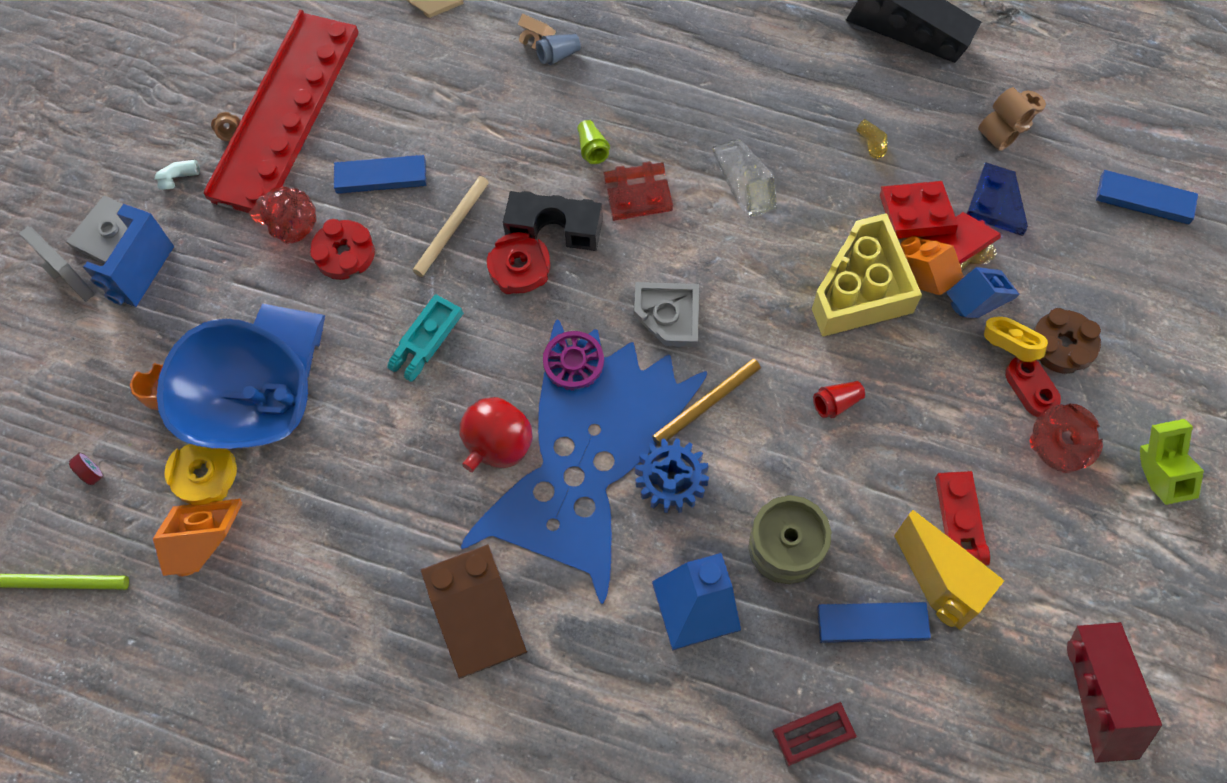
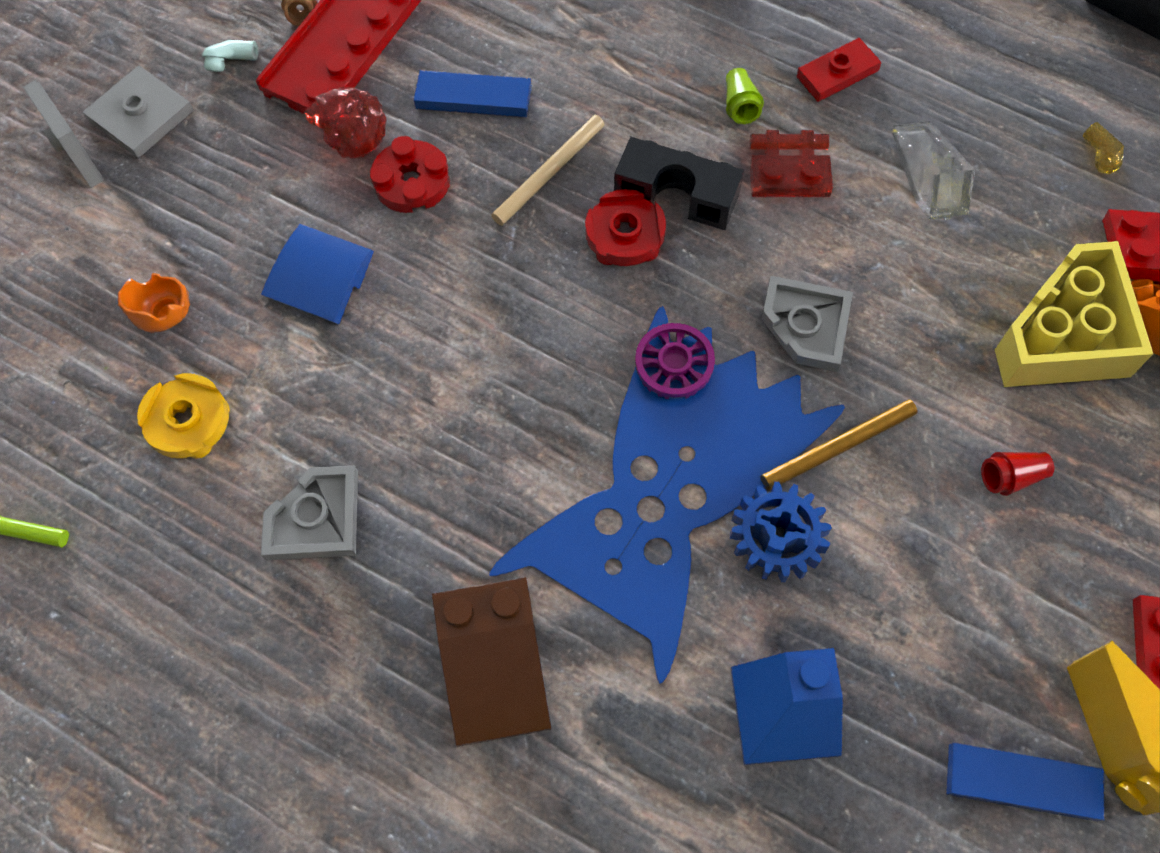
camera: 10 degrees right, 0 degrees up
(85, 469) = (44, 387): dark red tile -> none
(133, 260) = (155, 143): blue panel -> none
(192, 535) = (155, 494): orange slope -> none
(231, 386) = (240, 317): blue piece -> none
(319, 529) = (314, 517): none -> light grey plate
(425, 336) = (492, 298): teal hinge -> none
(494, 434) = (559, 436): red piece -> none
(663, 107) = (838, 69): none -> red plate
(792, 519) = (955, 644): olive wheel -> none

